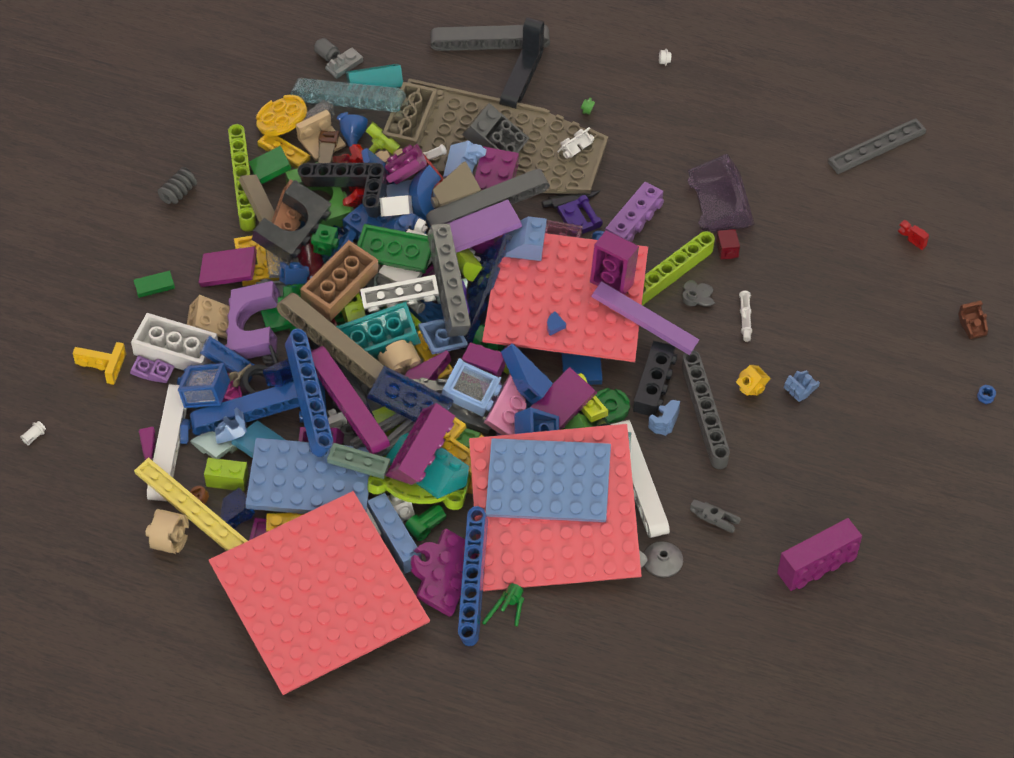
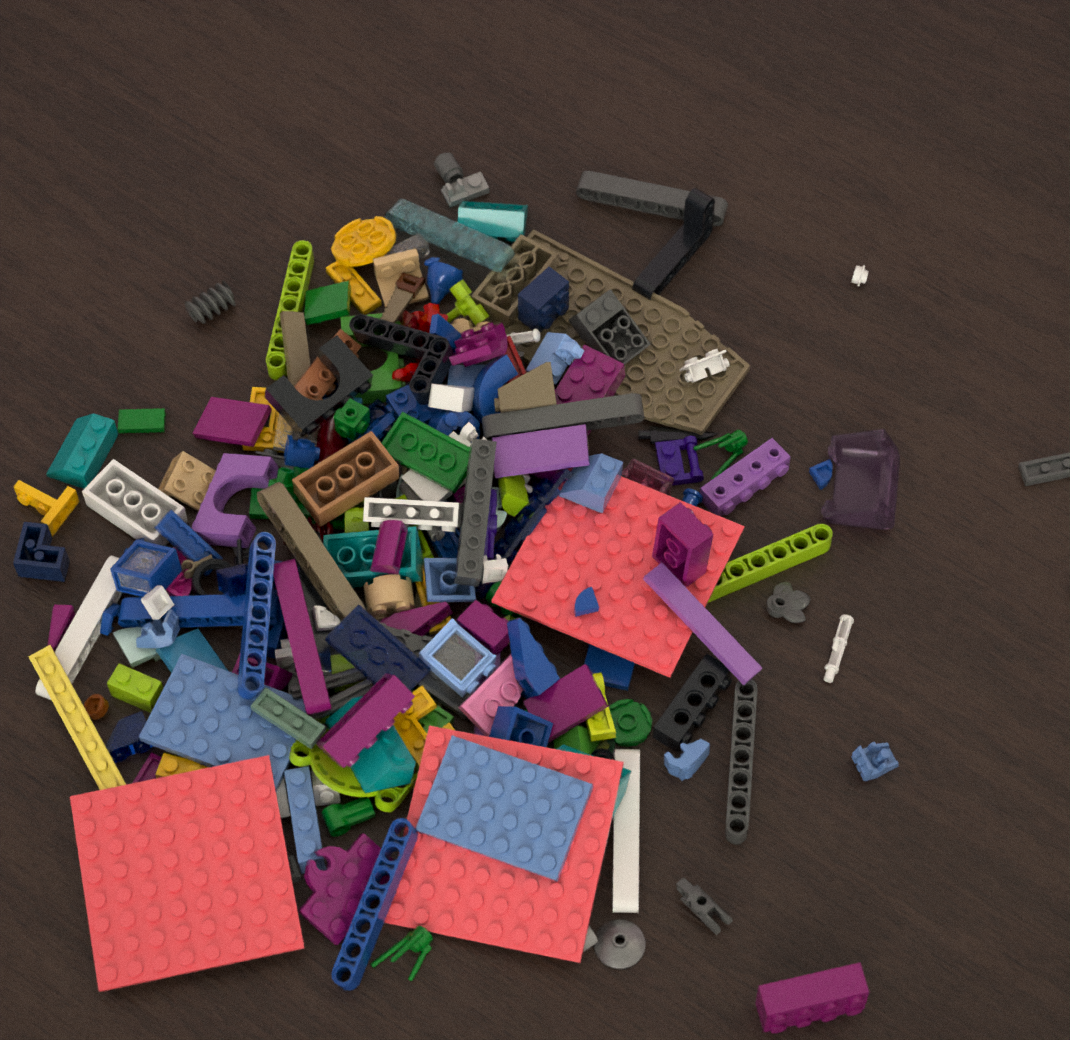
camera: 20 degrees right, 5 degrees up
(113, 400) = (36, 557): none -> dark blue brick
(116, 315) = (84, 450): none -> teal slope
(150, 370) = (100, 530): medium lavender slope -> none
(167, 531) = (41, 744): tan brick -> none
(223, 404) = (157, 602): none -> white tile
(359, 385) = (324, 619): none -> white tile
(390, 320) = (389, 547): none -> magenta brick
(440, 122) = (543, 300): none -> dark blue brick
(477, 319) = (494, 569): none -> white tile
(587, 106) = (739, 318): bright green plate -> none
(617, 193) = (732, 442): none -> green plant
(688, 199) = (822, 473): none -> blue tile
(728, 244) = (848, 547): dark red brick -> none
(752, 380) = (813, 739): yellow brick -> none

